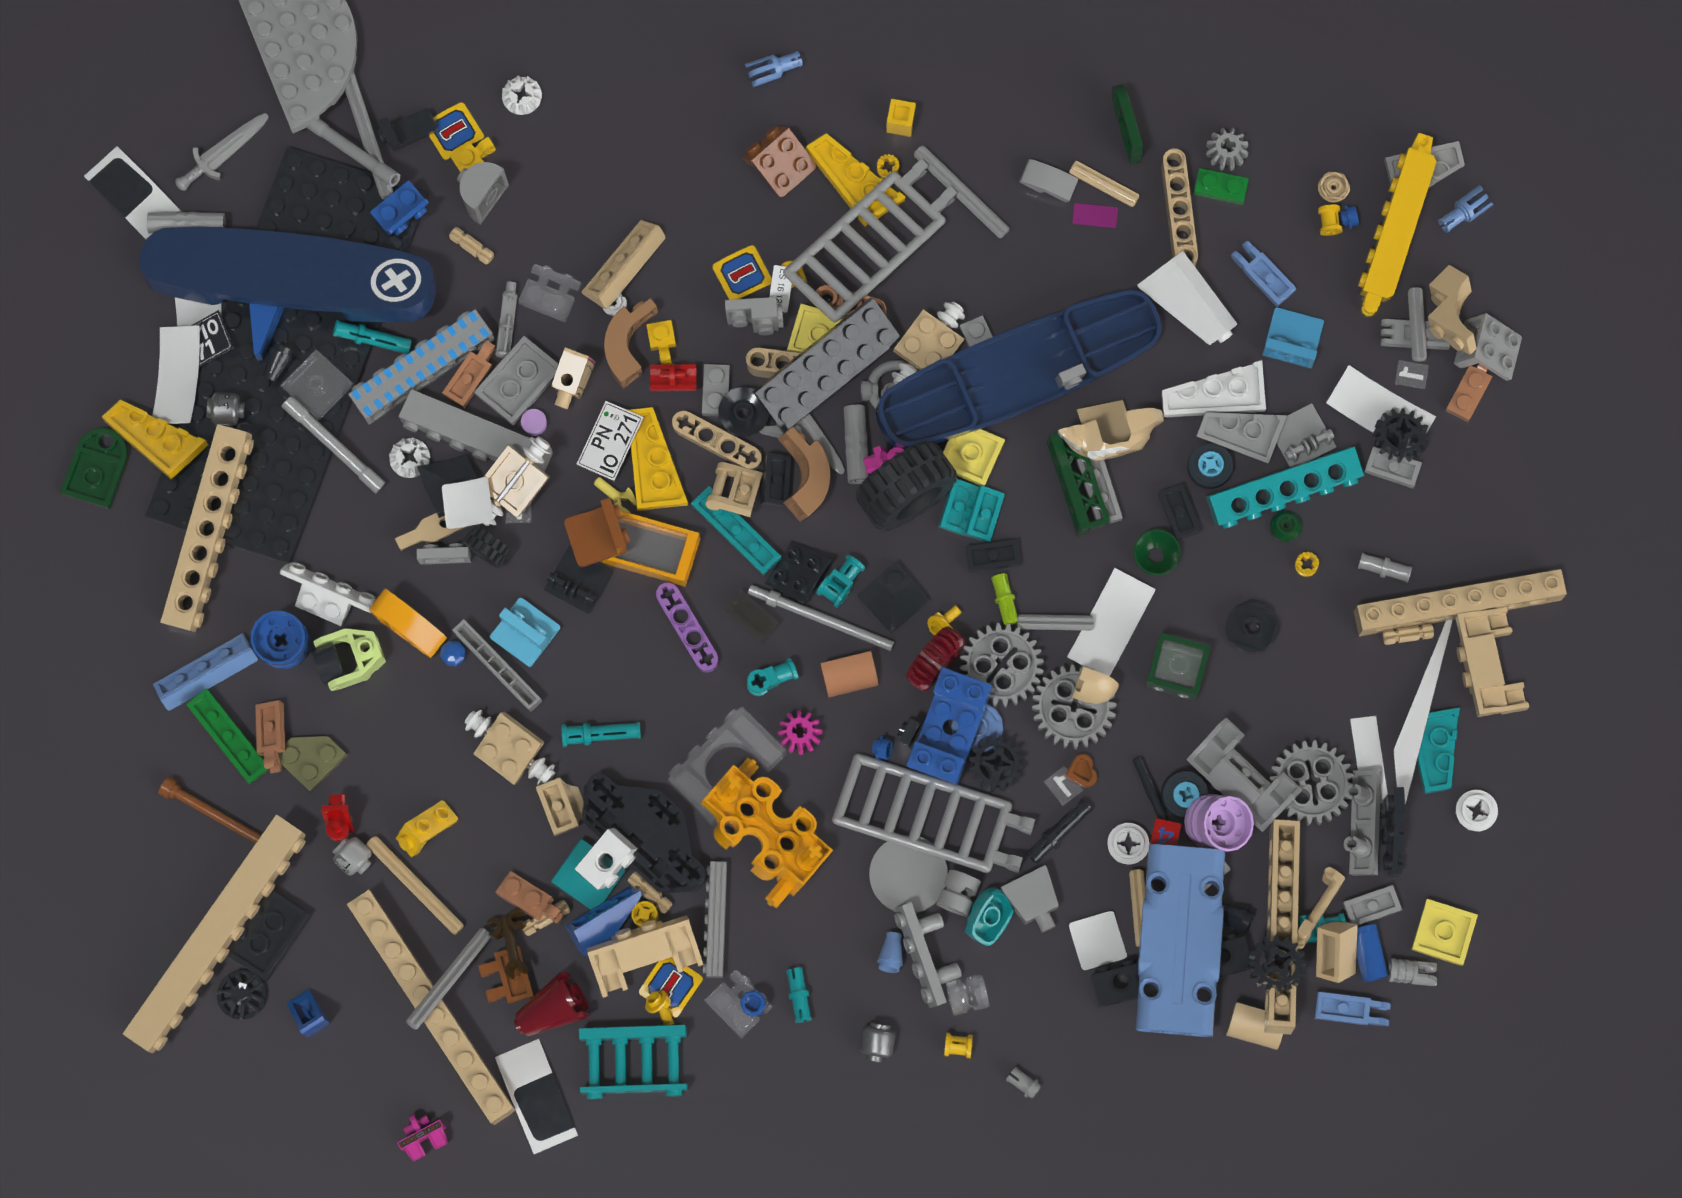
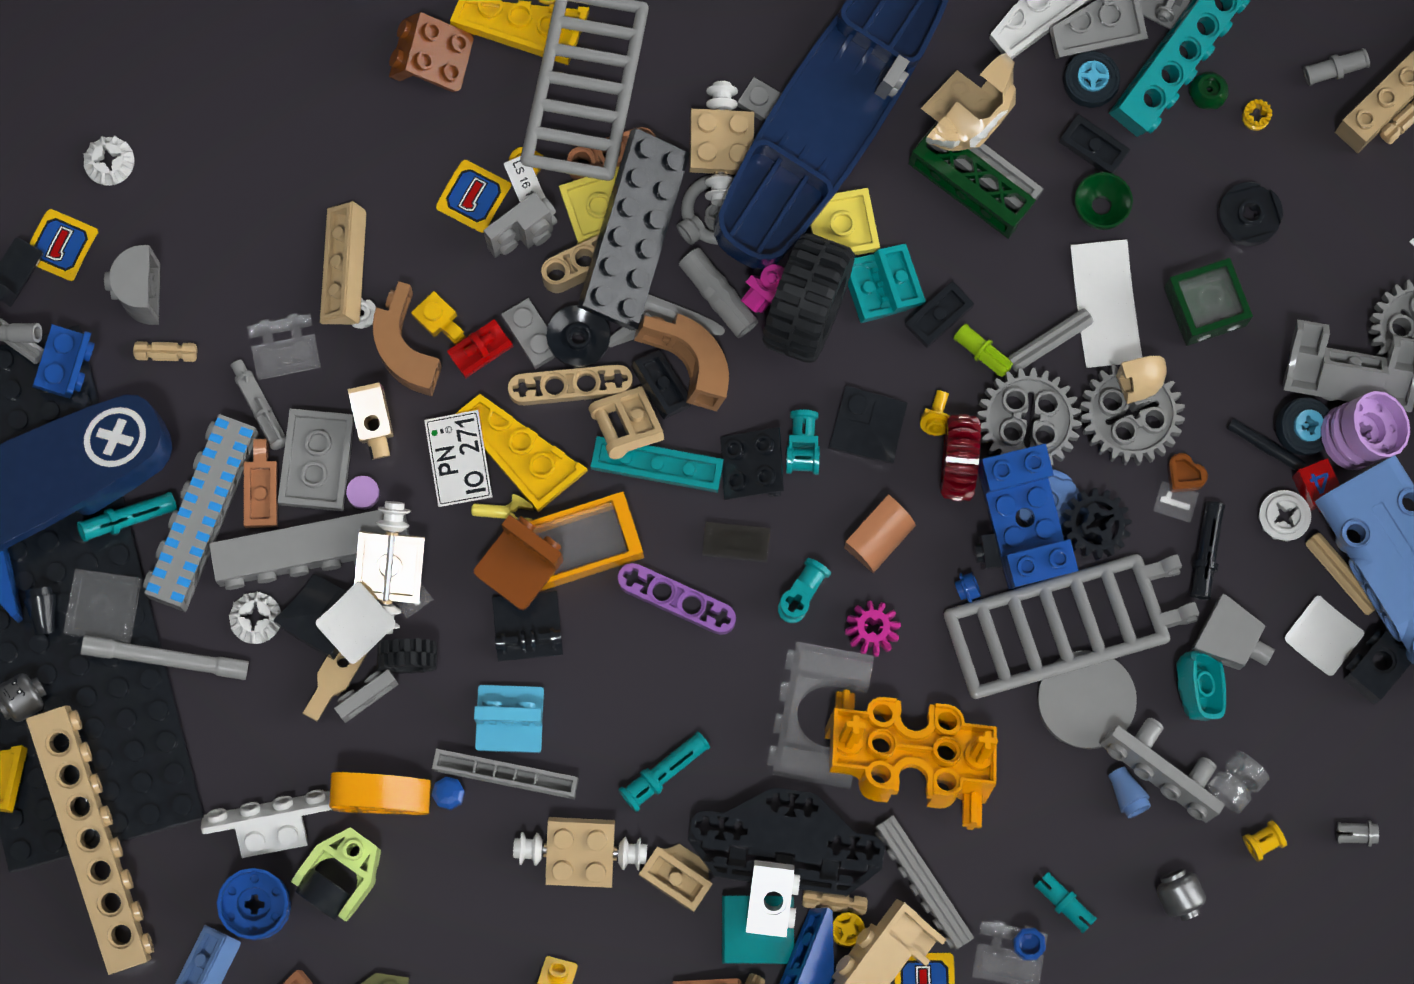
camera: 40 degrees left, 0 degrees up
(469, 156) = (100, 258): yellow plate -> none
(775, 599) = (747, 508): light grey bar -> none
(958, 893) = (1153, 683): light grey wheel -> none

